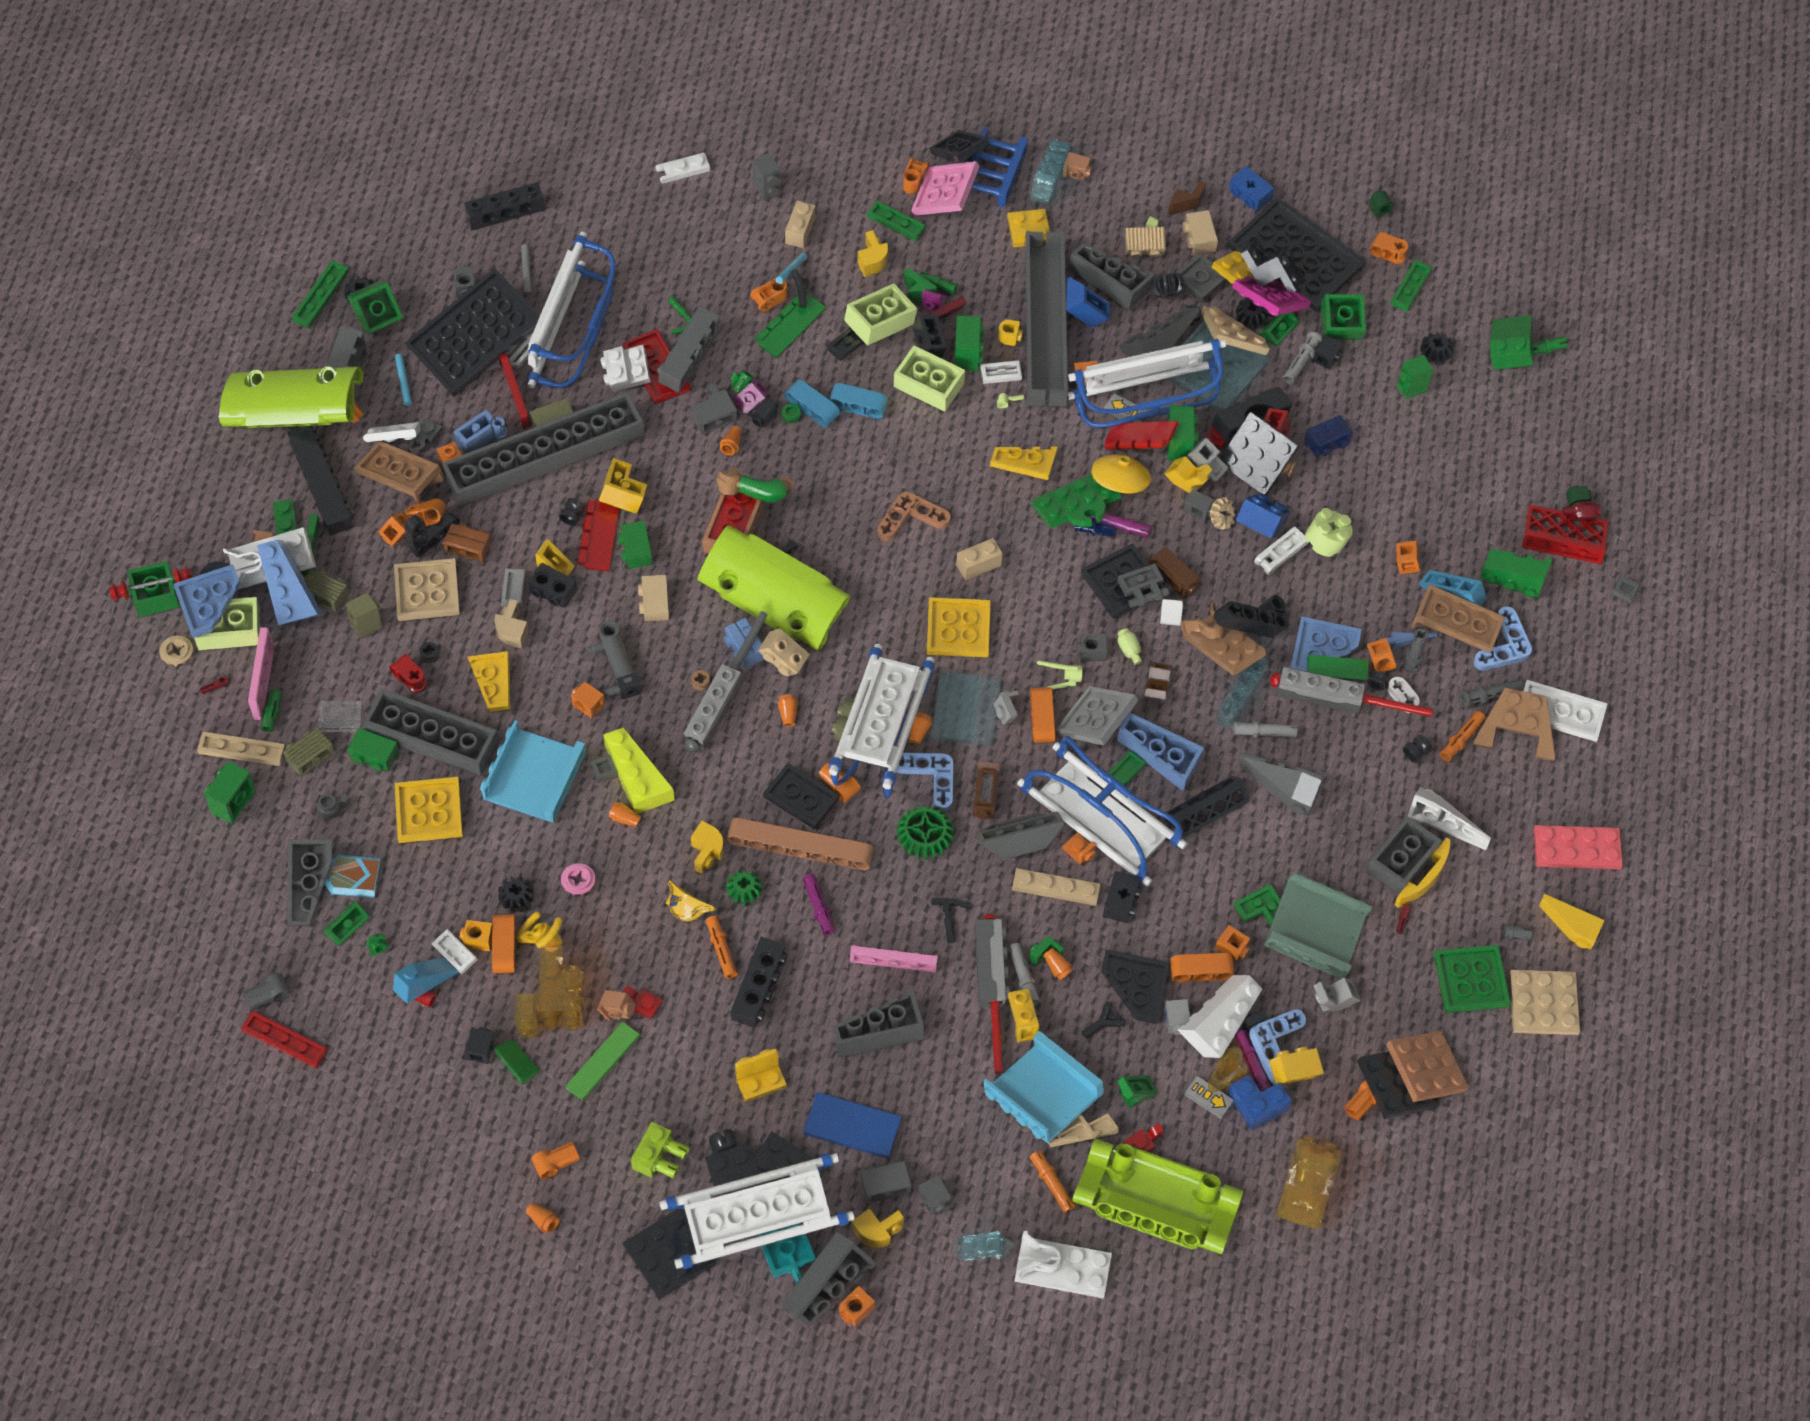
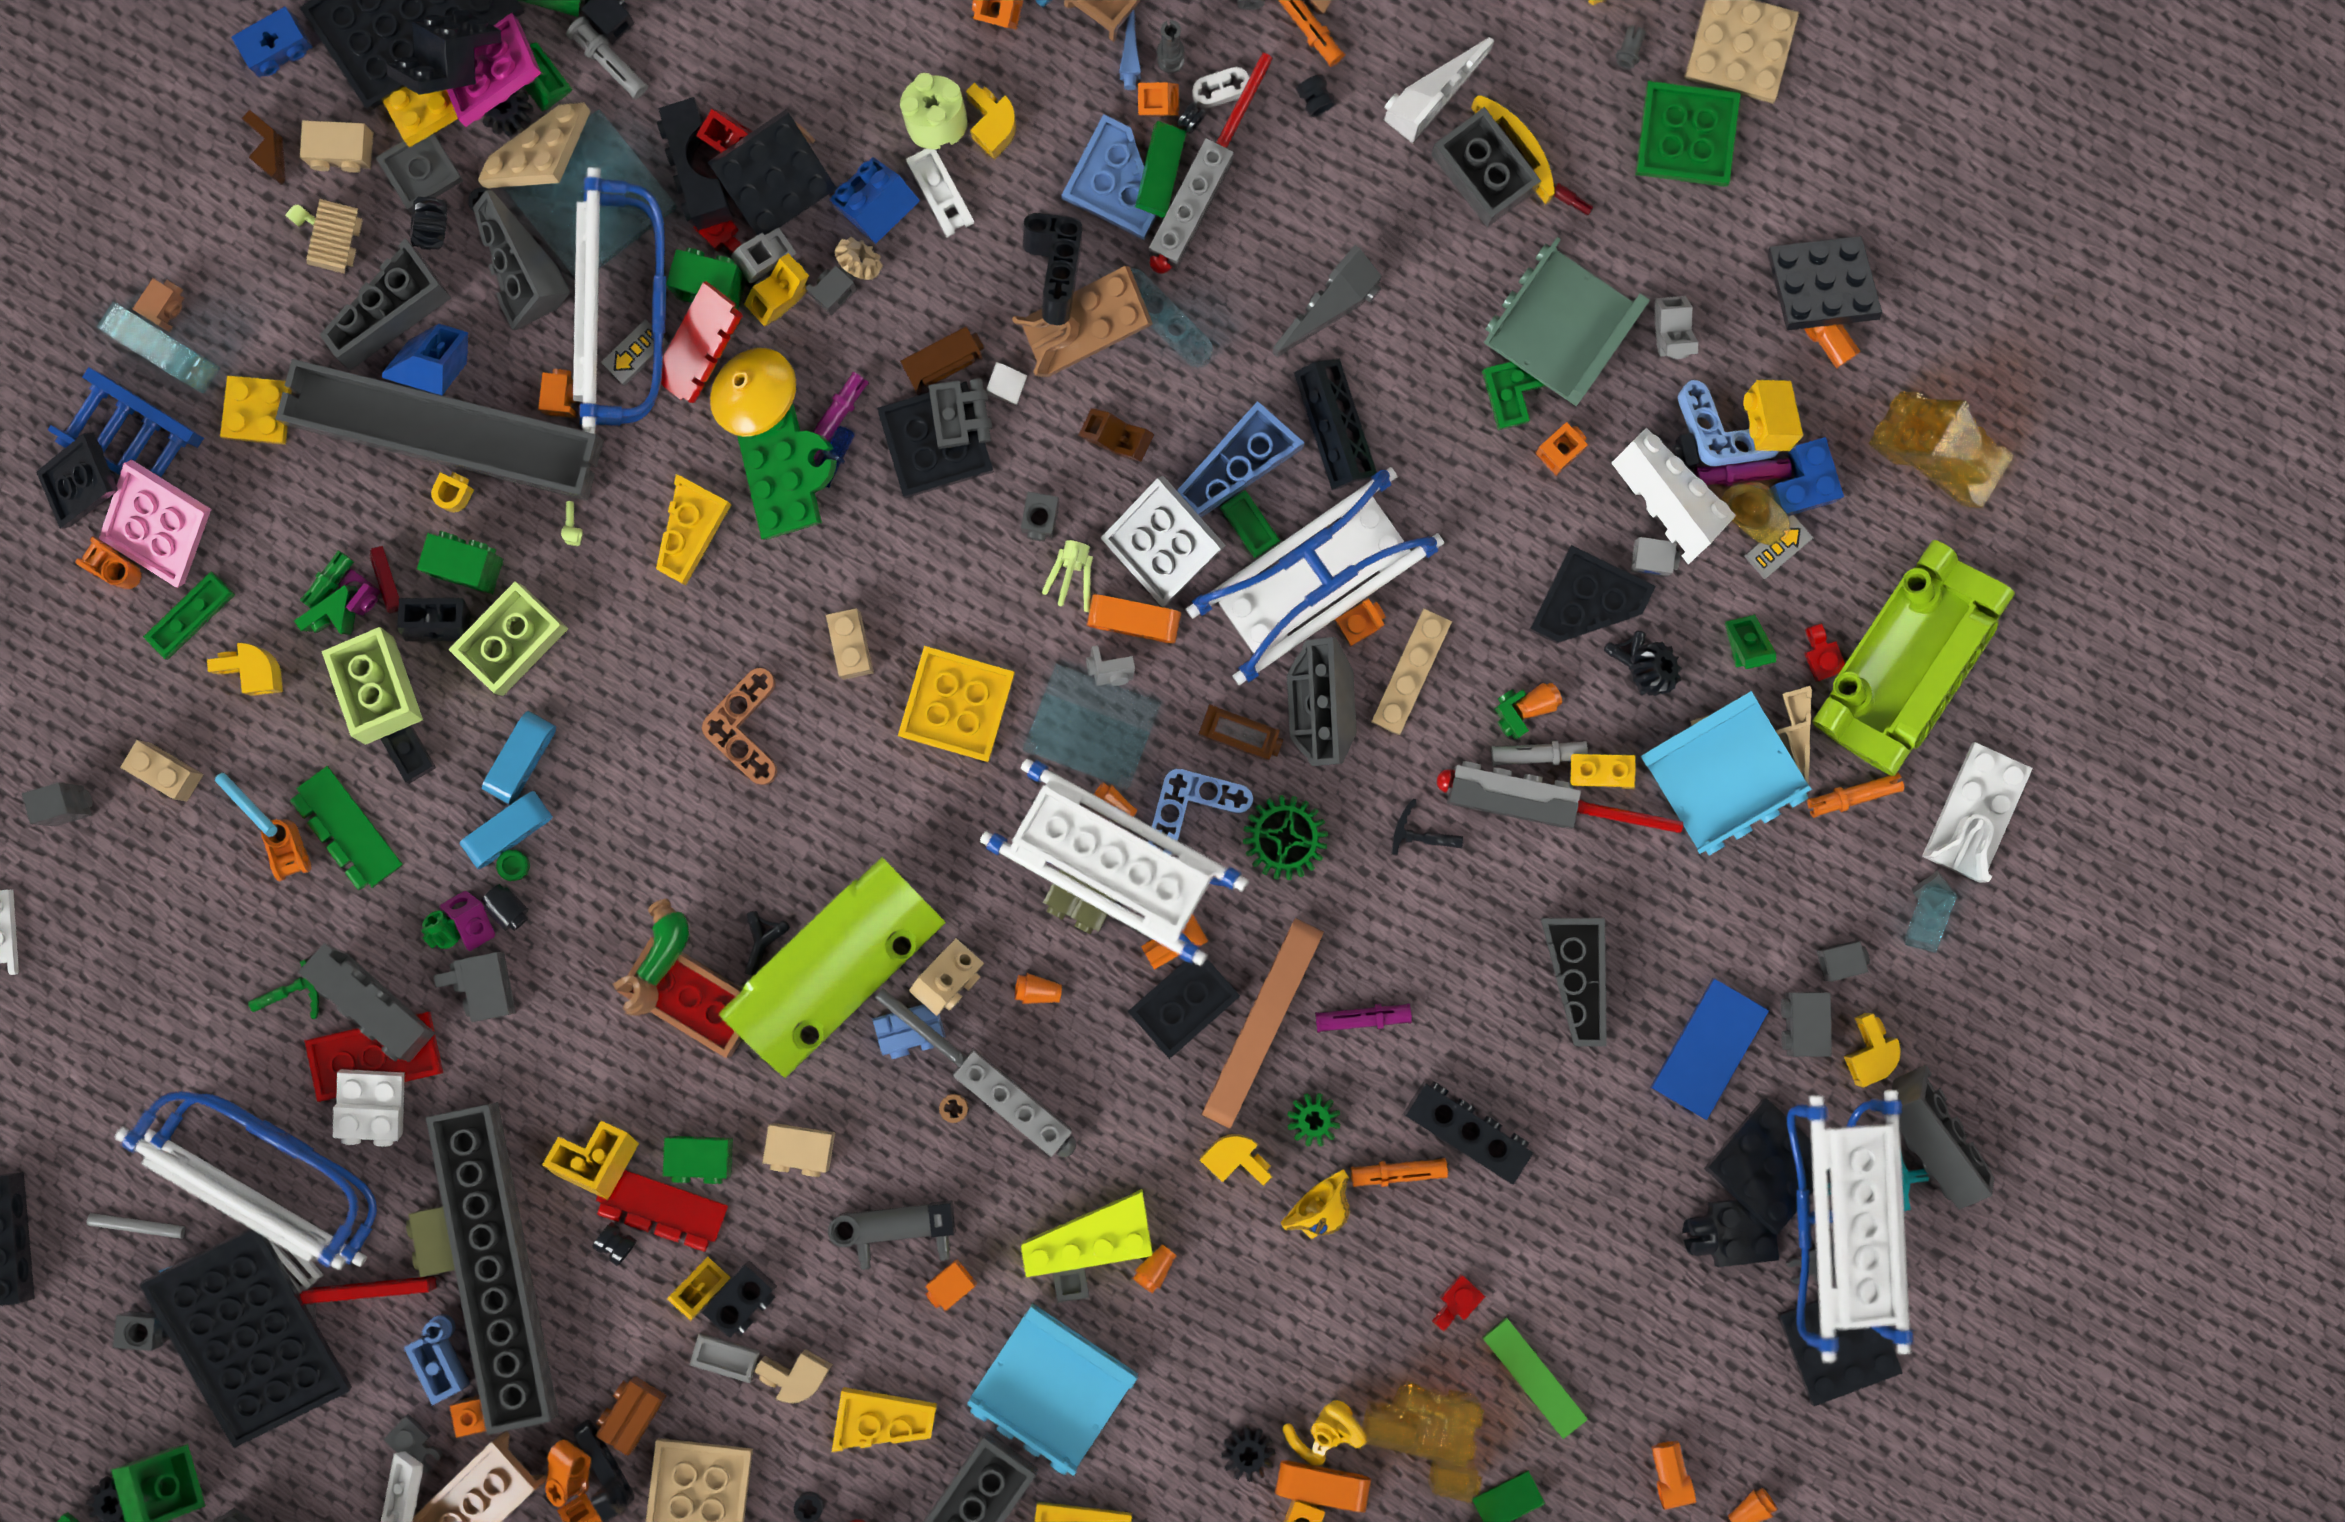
camera: 75 degrees left, 25 degrees up
(403, 379) = (299, 1460): medium azure bar -> none
(572, 872) = (1247, 1371): bright pink gear -> none
(616, 1005) = (1462, 1344): nougat brick -> none
(652, 1148) = (1699, 1344): lime brick -> none
(730, 443) = (546, 971): orange cone -> none
(759, 1075) = (1615, 1162): yellow bracket -> none
(801, 284) = (282, 796): black piece -> none
(859, 1298) = (1968, 1096): orange brick -> none
(893, 958) = (1474, 931): bright pink hinge -> none
(1001, 374) = (528, 527): white tile -> none
(1094, 1030) = (1655, 668): none -> black gear
(1118, 908) = (1462, 599): black brick -> none
(1129, 645) = (1048, 459): yellowish green plant -> none
(1201, 967) = (1587, 501): orange beam -> none
(1259, 729) = (1229, 316): light grey pin -> none
(1328, 436) = (759, 61): clear blue brick -> none
(1334, 572) = (997, 126): none -> yellow brick
(1427, 1066) = (1809, 236): nougat plate -> none

